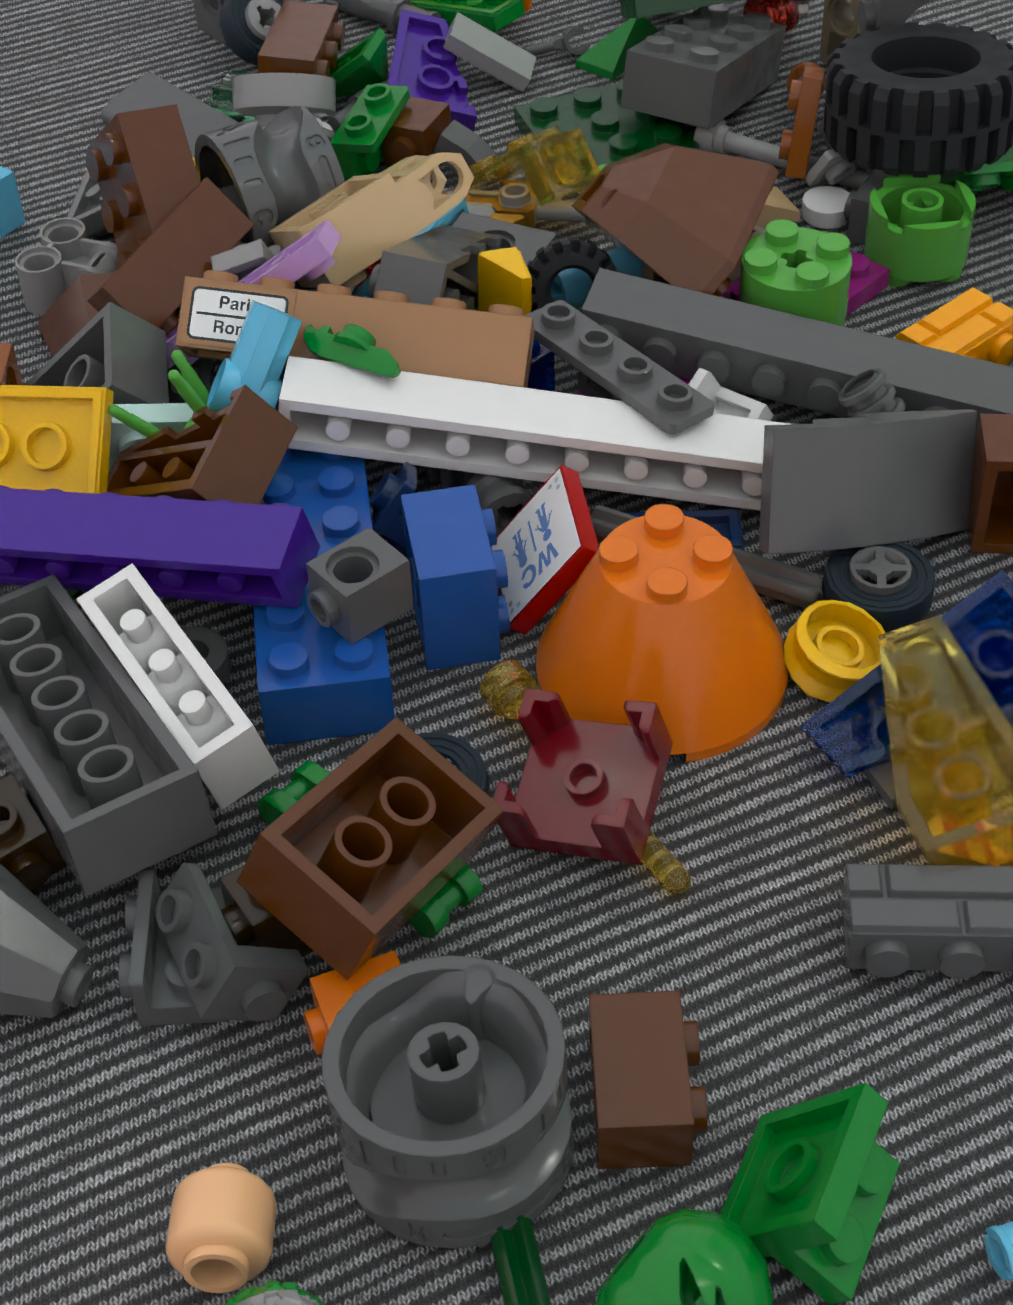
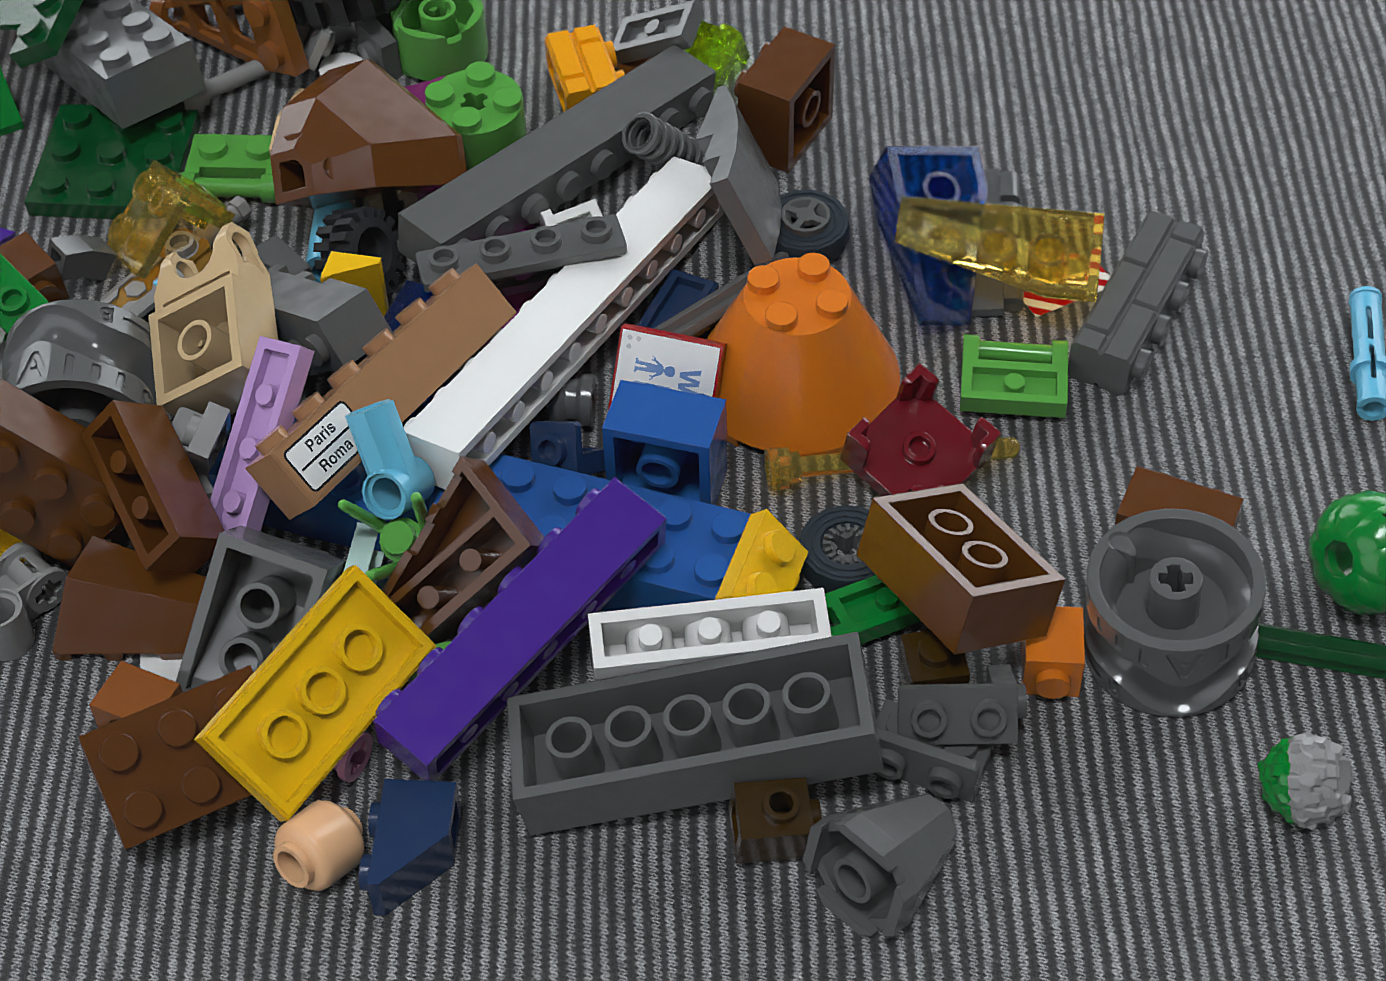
camera: 65 degrees left, 5 degrees up
(221, 1227) = (1196, 783): light nougat head -> none
(314, 707) = (764, 560): none -> yellow bracket
(351, 347) = (426, 386): green piece -> none
(359, 585) = (688, 487): dark grey brick -> none
(769, 850) = (1014, 377): none -> bright green plate
(816, 1188) = (1299, 464): green bracket -> none
(831, 648) = (867, 271): yellow piece -> none

